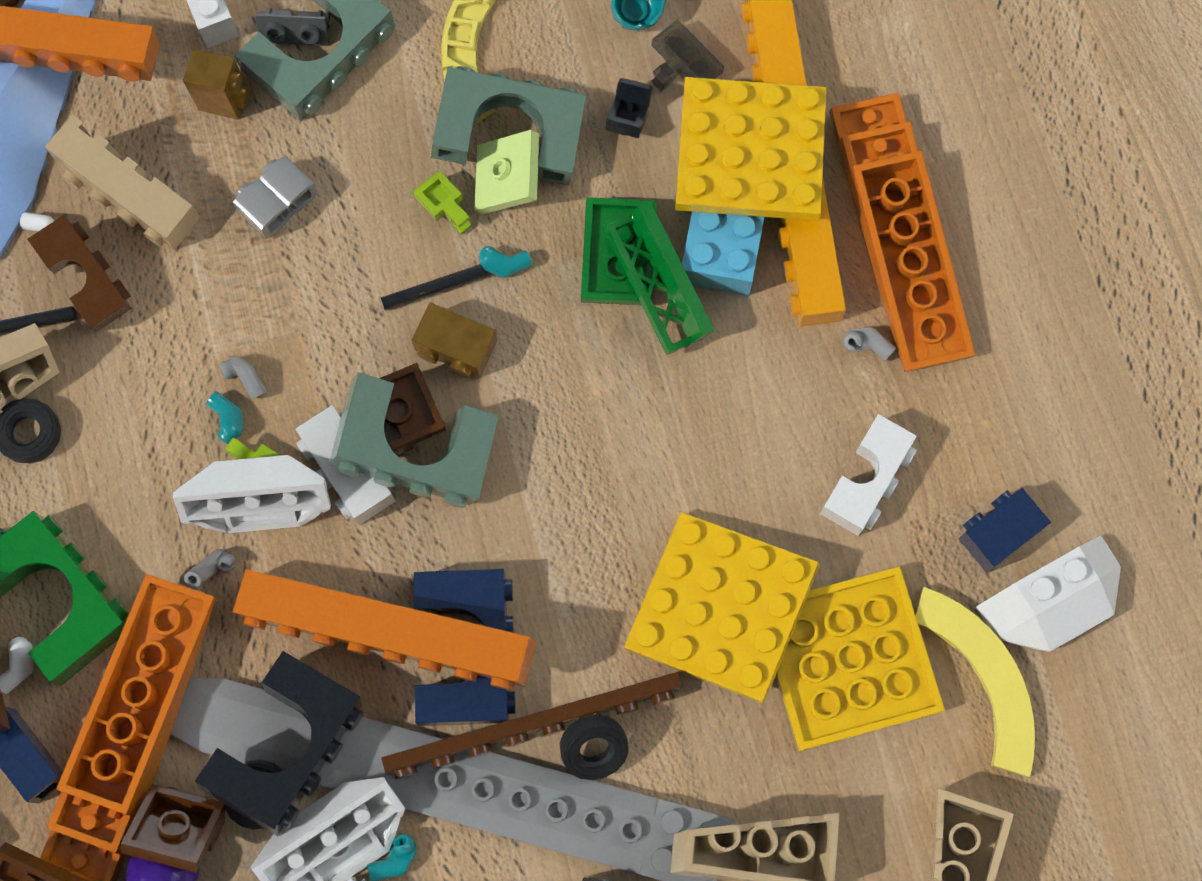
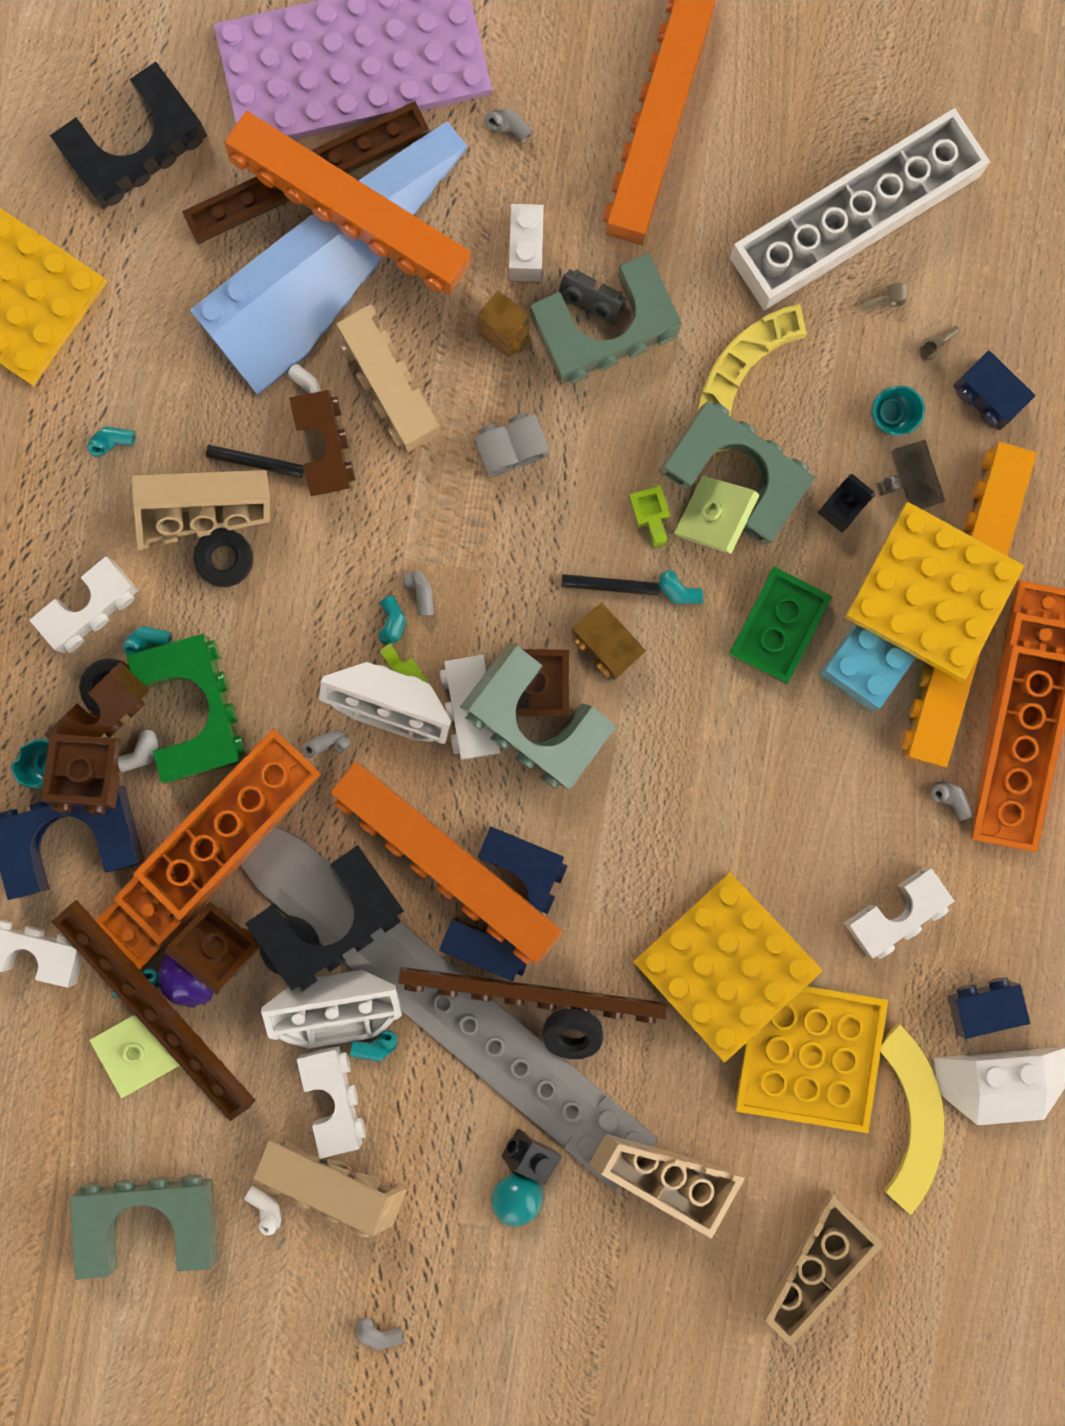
camera: 20 degrees right, 10 degrees up
(670, 273) = (814, 668): green fence -> none

